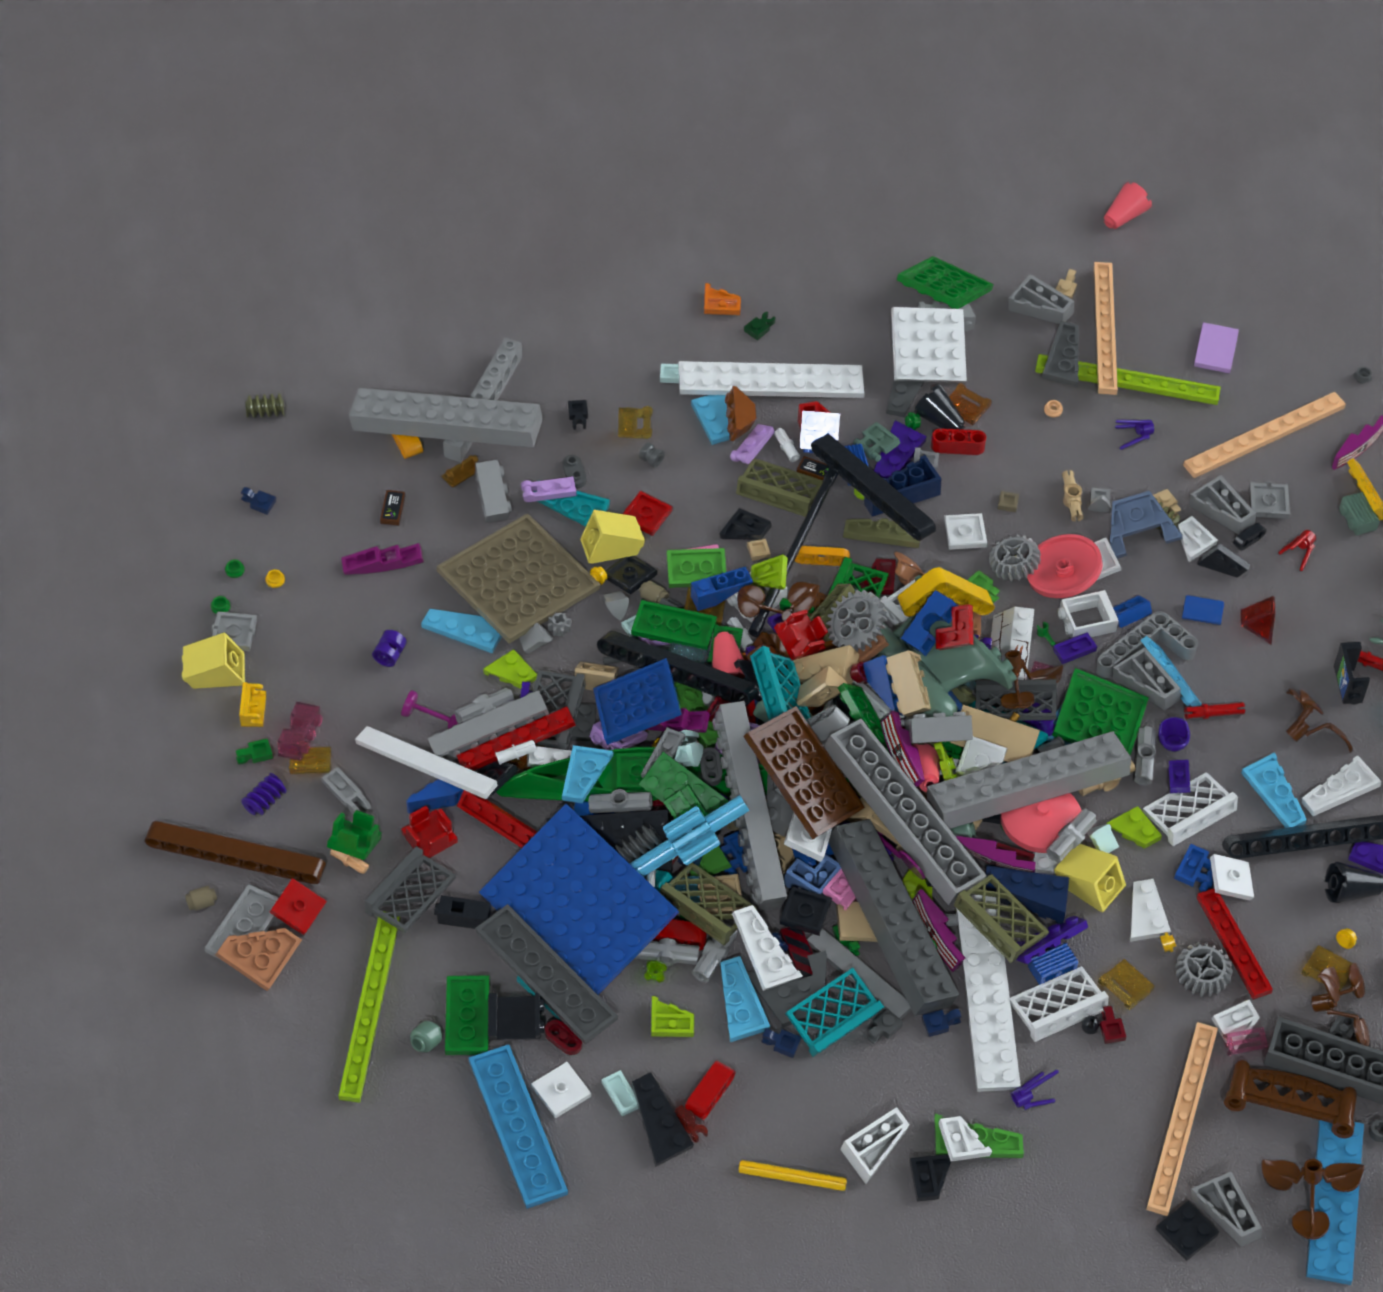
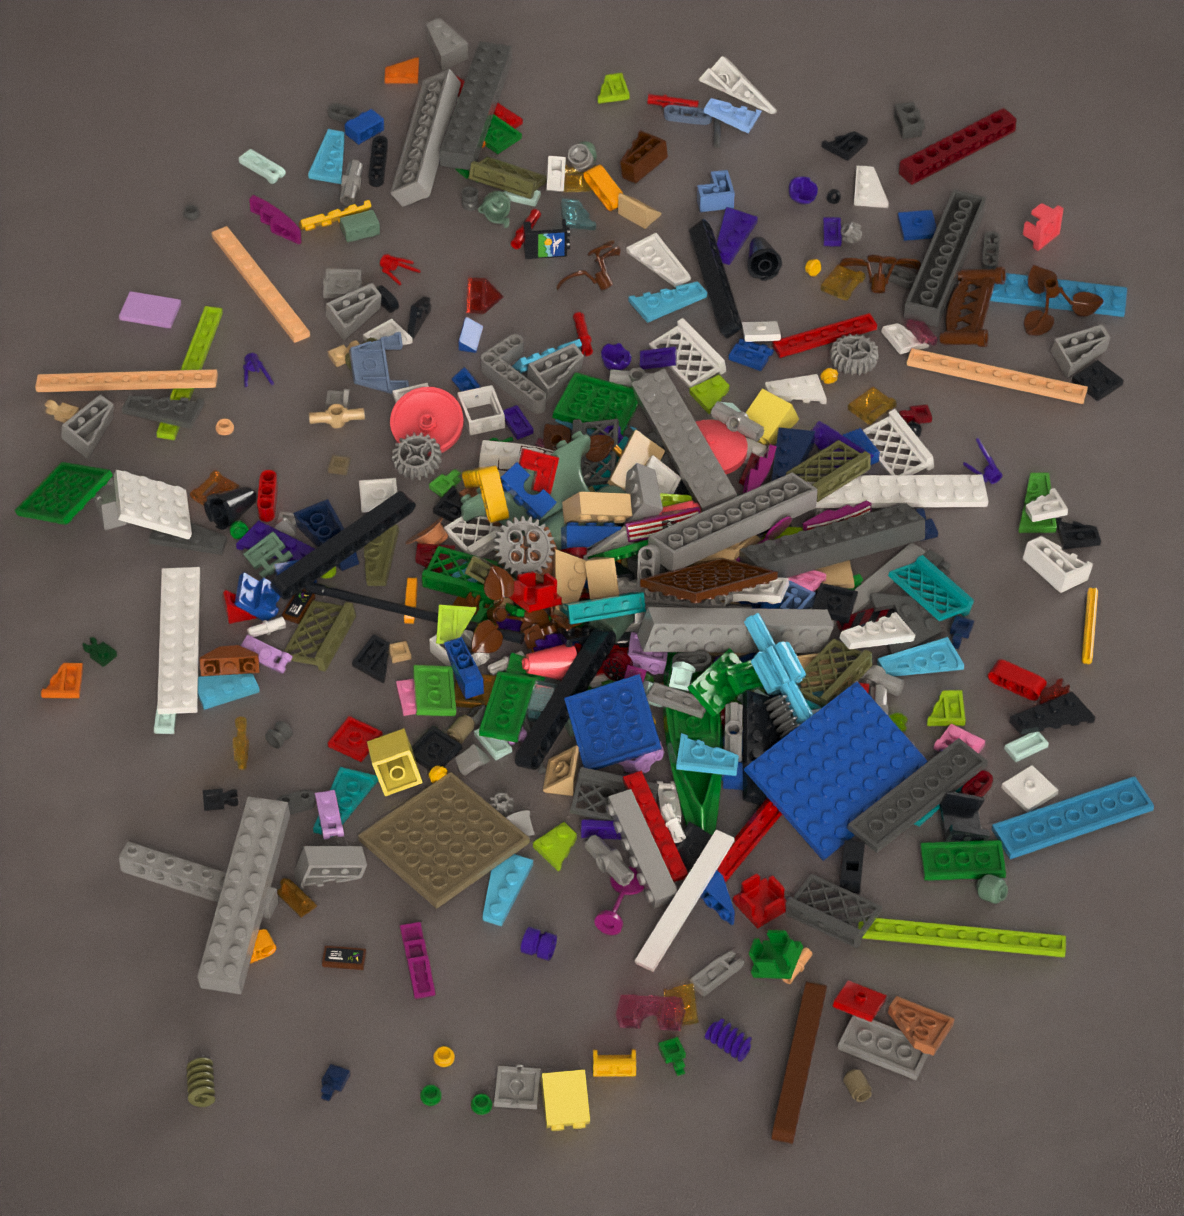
camera: 90 degrees left, 5 degrees down
(629, 1031) = (953, 733): none -> bright pink plate

